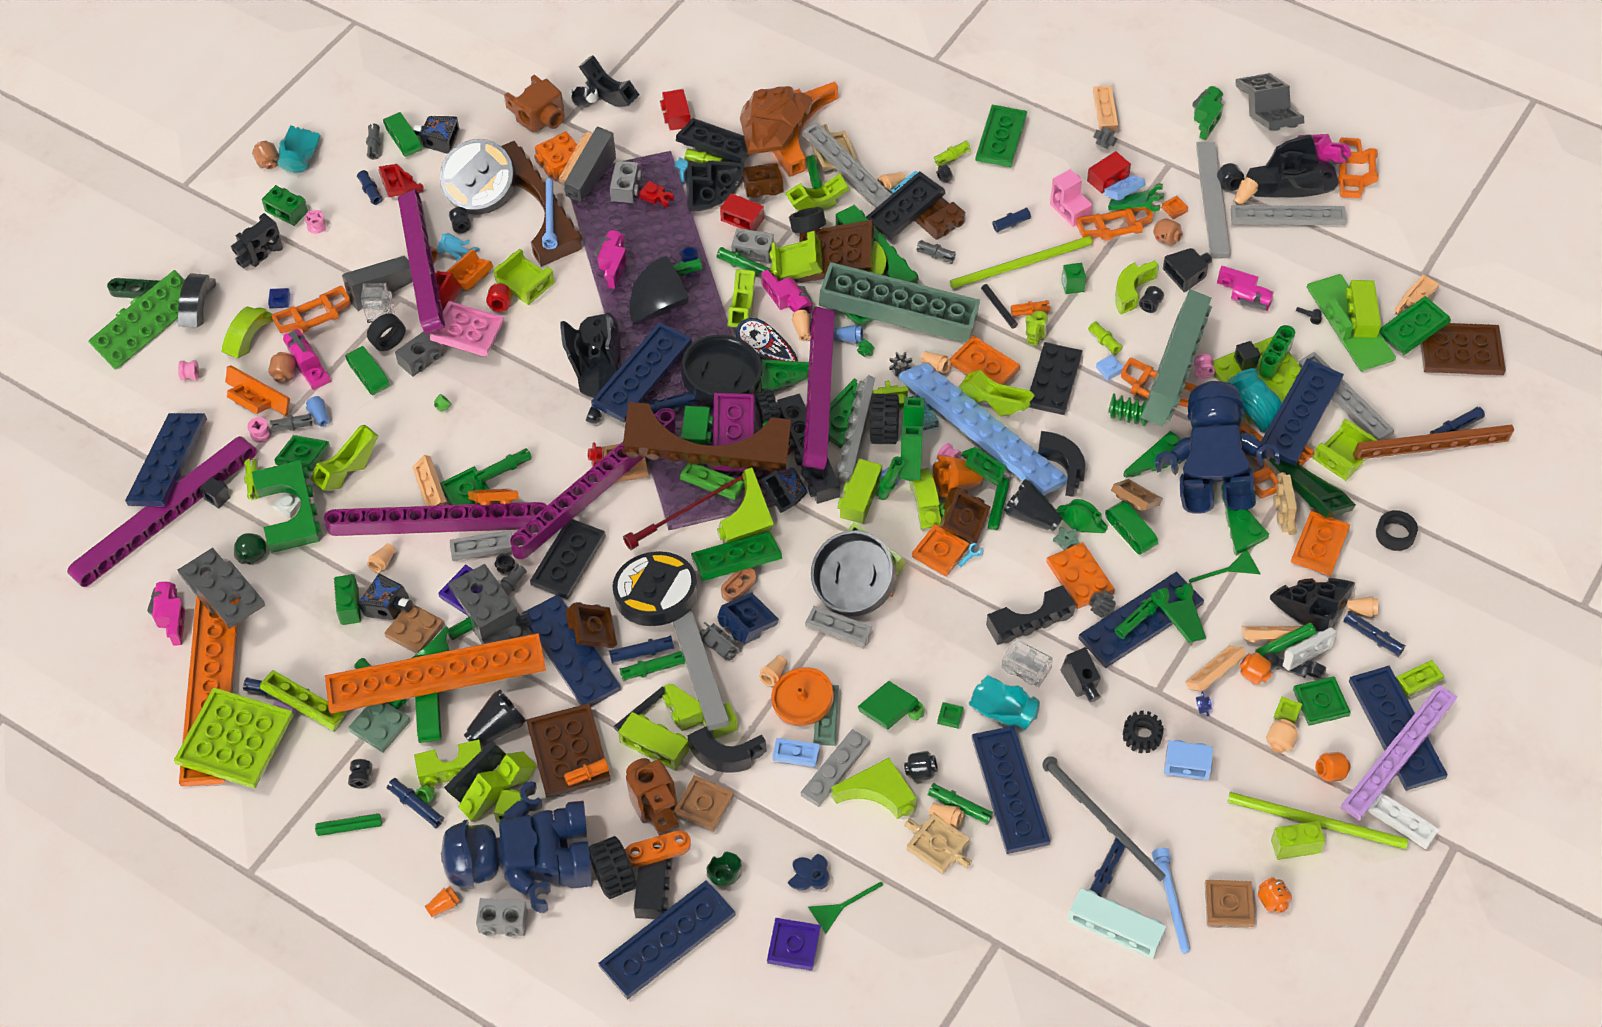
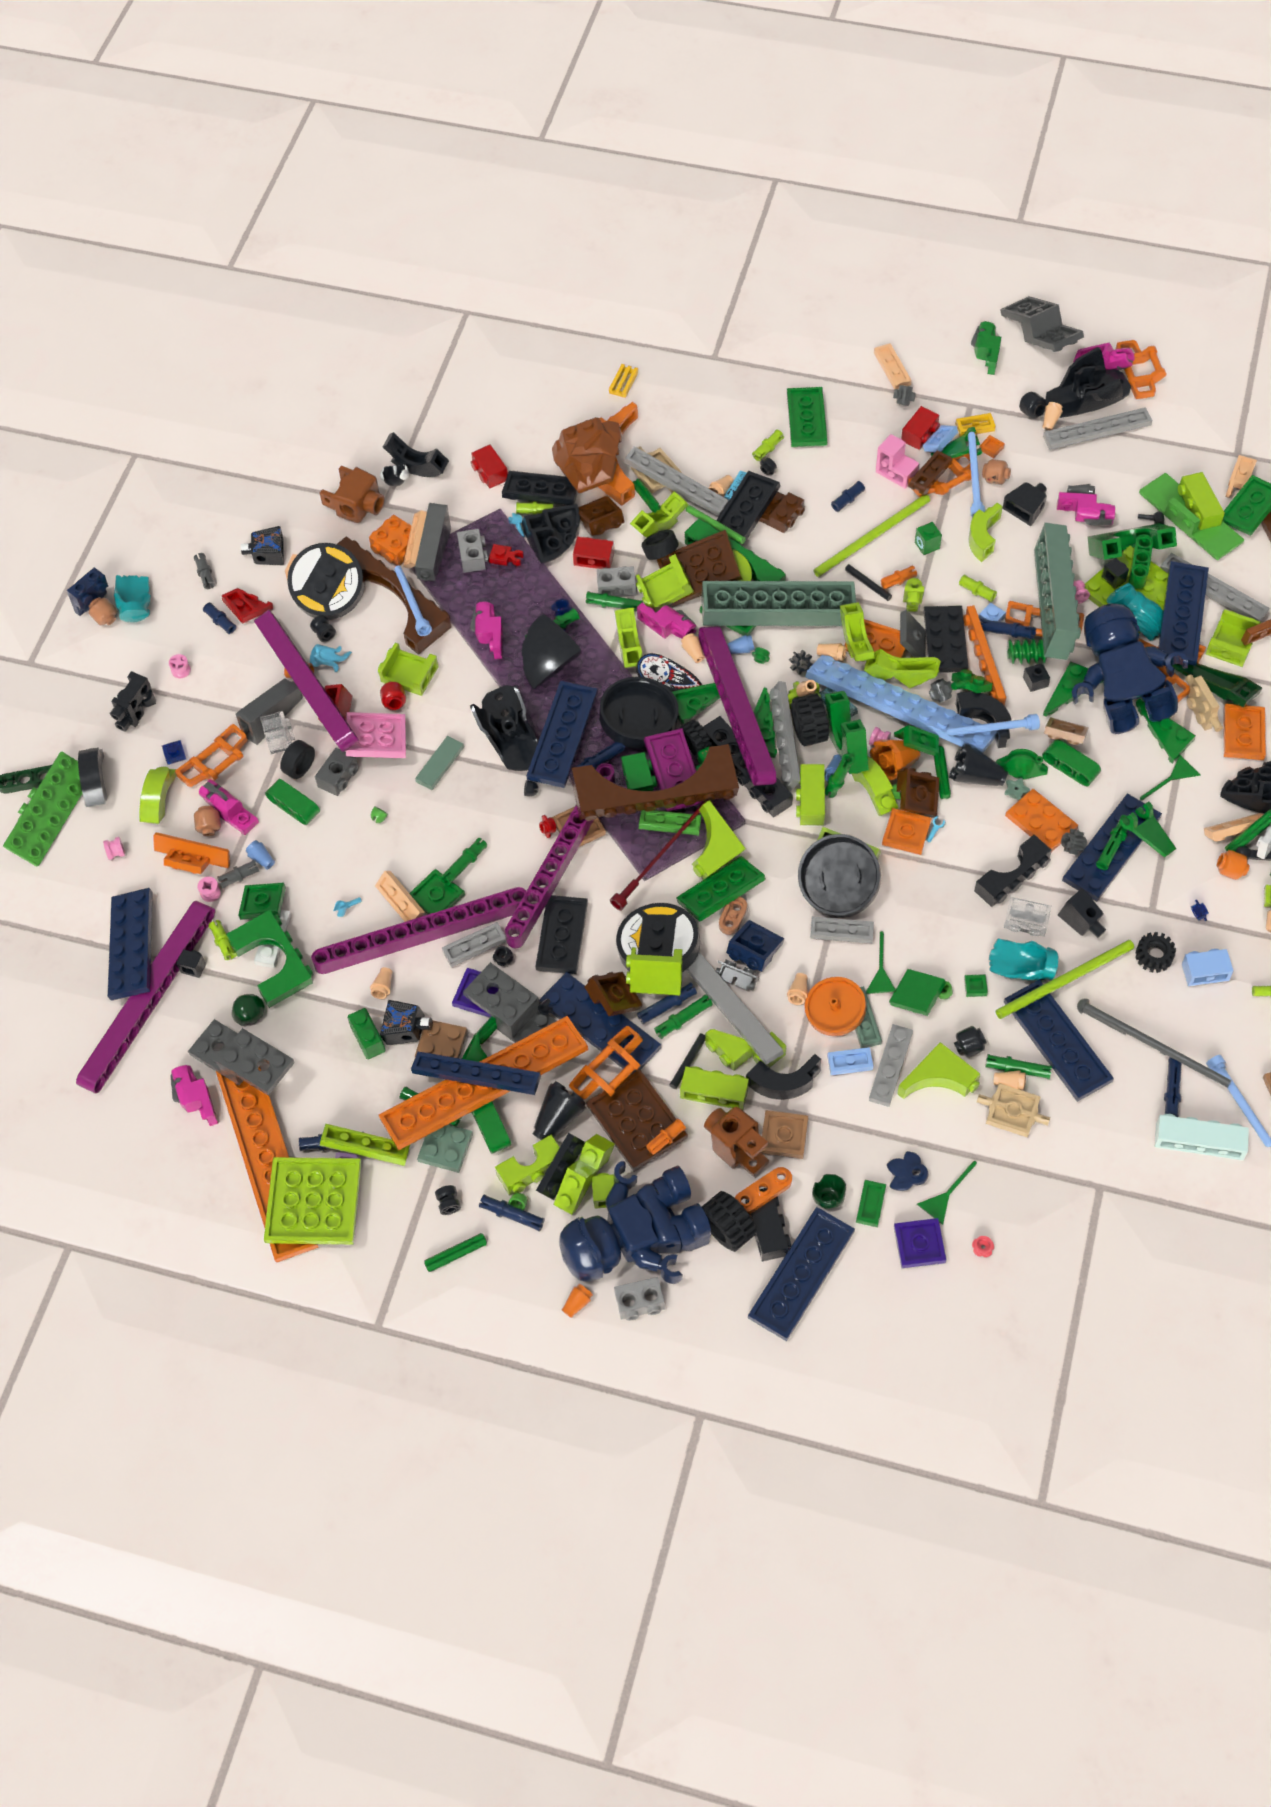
camera: 15 degrees left, 5 degrees up
(257, 130) = (86, 590): none -> dark blue plate
(284, 205) = (142, 657): green brick -> none
(351, 457) = (313, 893): lime arch -> none
(373, 477) = (342, 906): none -> medium azure hand
(402, 134) = (230, 556): green beam -> none
(429, 661) = (476, 1073): none -> dark blue plate
(470, 269) = (354, 675): orange bracket -> none
(485, 497) = (469, 892): orange plate -> none
(509, 582) = (517, 968): dark grey pin -> none
(518, 370) = (439, 763): none -> sand green tile
(571, 674) = (613, 1045): none -> orange bar
(636, 615) = (655, 973): none -> lime panel
(762, 893) = (871, 1203): none -> green tile
(785, 488) = (744, 812): black torso -> none
(834, 60) = (627, 370): none -> yellow tile
(855, 960) = (987, 1242): none -> coral plate
(858, 686) = (881, 982): none -> green piece
(869, 214) = (715, 524): none -> bright green bar
(887, 390) = (806, 688): none -> light nougat cone
(936, 251) = (790, 544): dark grey pin -> none
(962, 347) = (855, 632): none -> lime arch
(1019, 365) = (912, 635): none -> dark grey plate
(1028, 425) = (941, 690): none -> dark grey gear
(1038, 732) = (1064, 979): none -> lime piece
(1059, 423) = (970, 681): none -> green plate
(1083, 411) = (982, 650): none -> orange plate
(1099, 216) = (930, 472): none -> reddish brown plate
(1102, 477) = (1030, 722): none -> light blue piece
(1123, 385) = (1014, 630): none -> dark blue pin
(1129, 437) = (1036, 677): none -> black plate
(1136, 257) = (977, 504): none -> light blue piece
(1151, 299) = (1005, 542): black wheel -> none
(1170, 182) = (982, 427): none -> yellow tile
(1212, 200) = (1023, 430): light grey tile -> none
(1215, 668) = (1197, 874): light nougat plate -> none
(1247, 268) = (1084, 489): none -> dark grey cone
(1254, 327) = (1111, 544): none -> green arch

